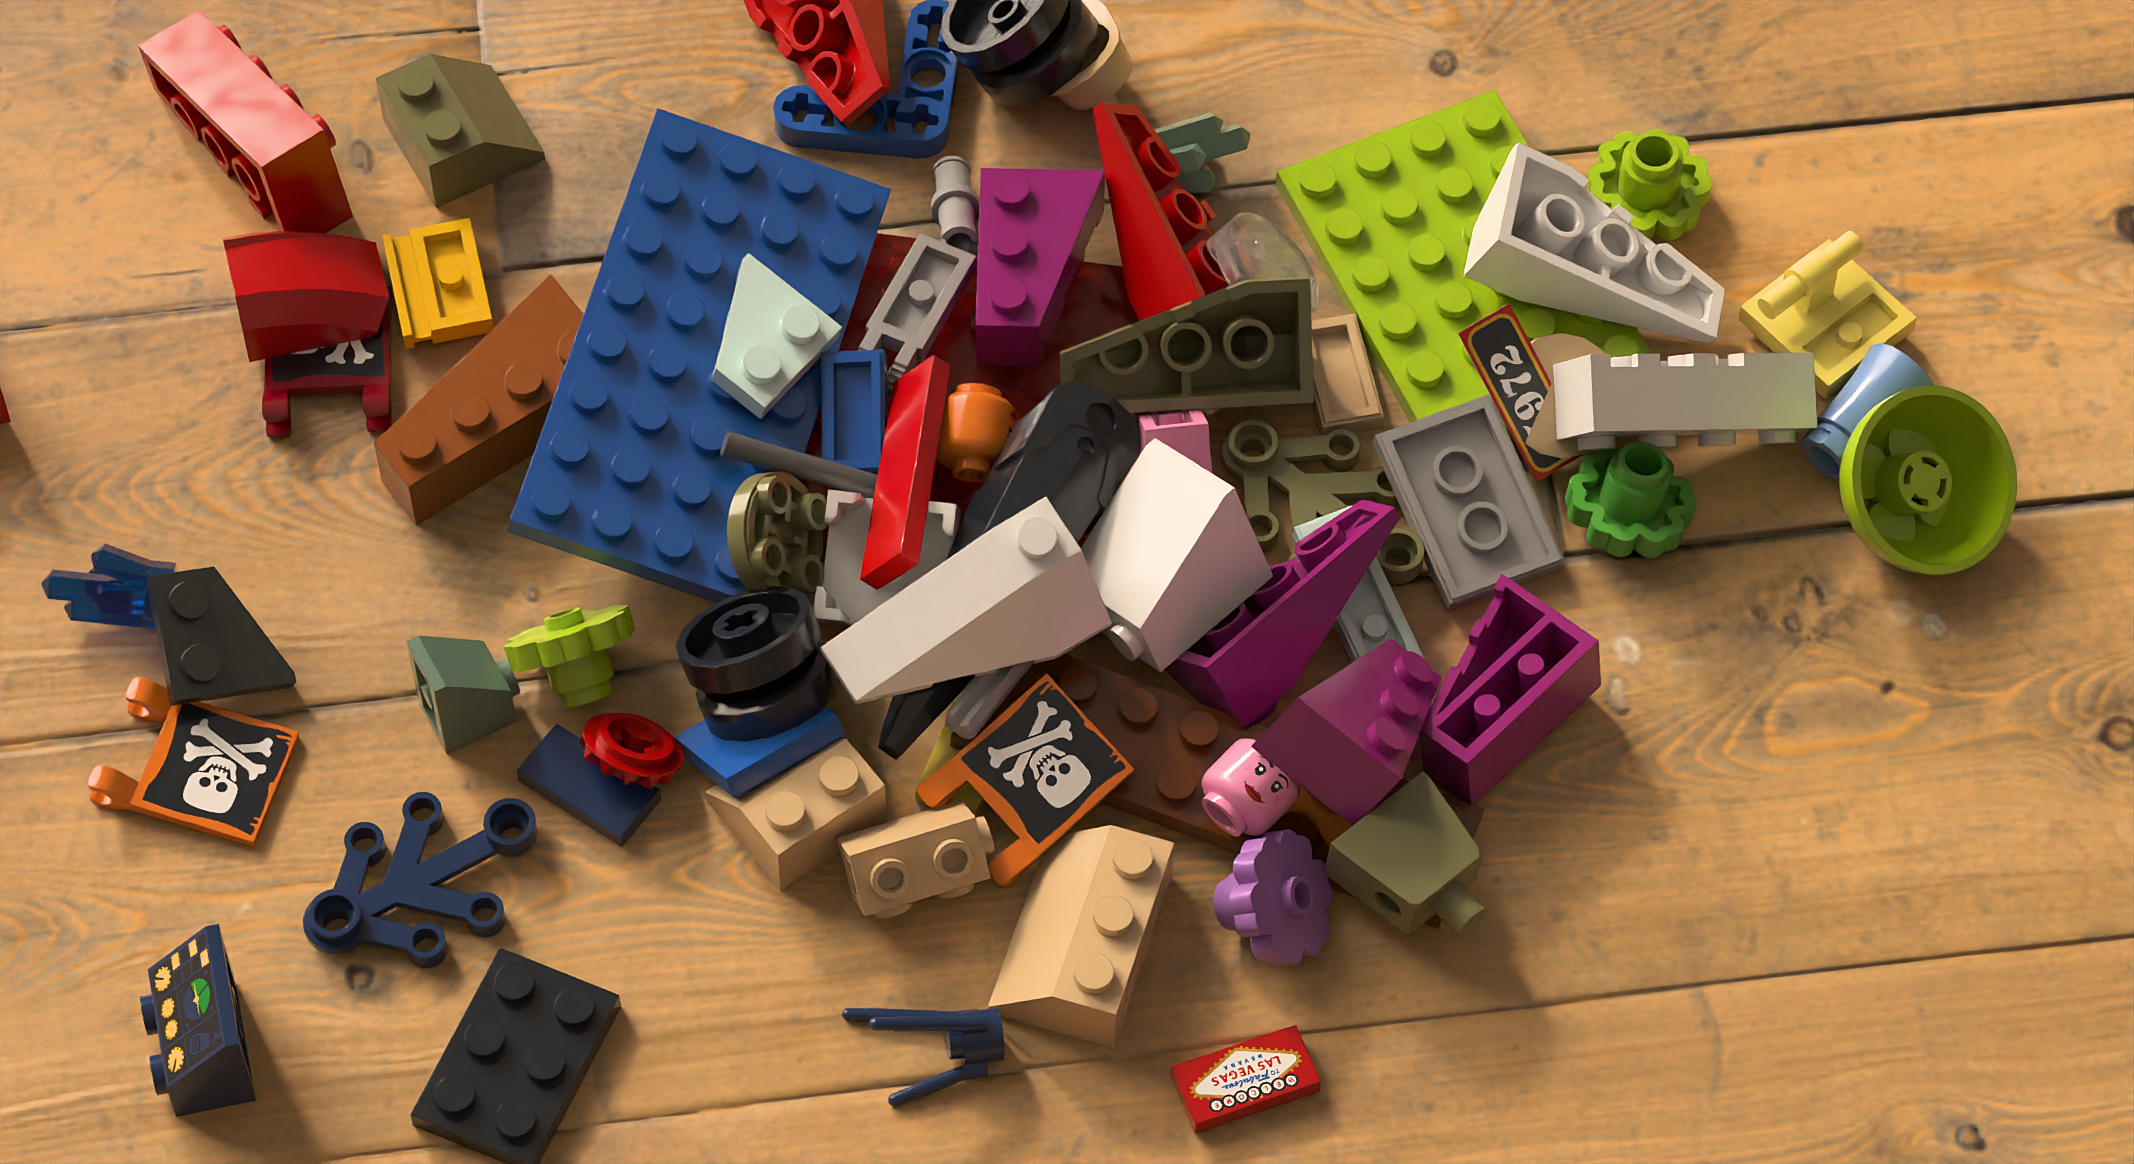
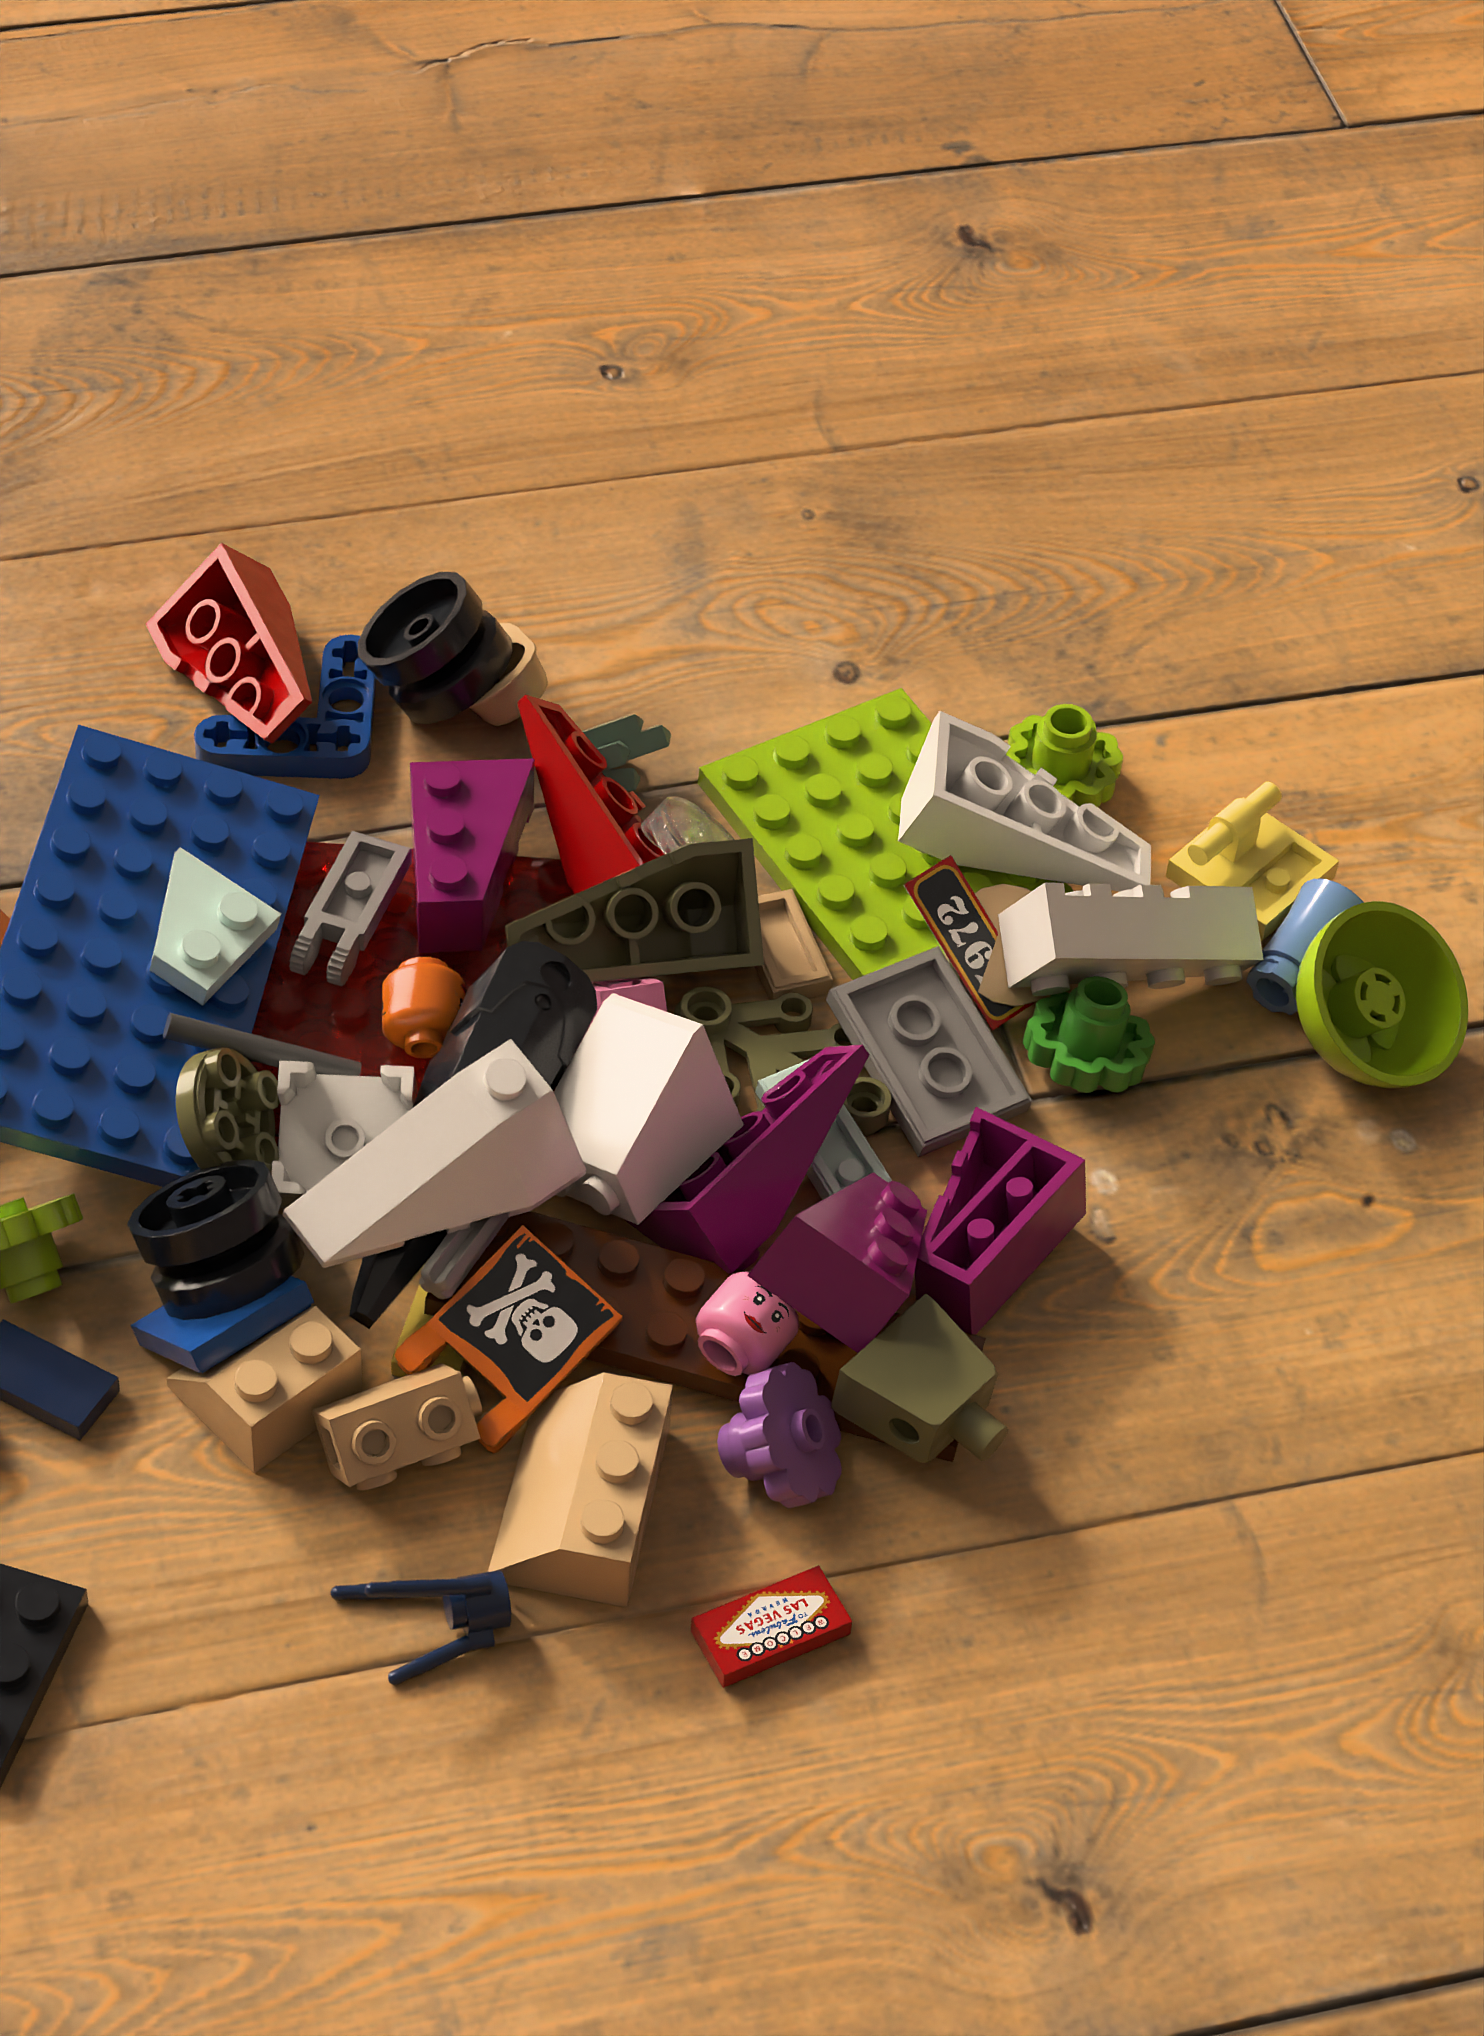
camera: 10 degrees left, 10 degrees down
(631, 748) = (85, 1337): red gear -> none
(854, 407) = (300, 991): blue tile -> none
(905, 473) = (358, 1045): red tile -> none
(955, 203) = (383, 807): light grey pin -> none

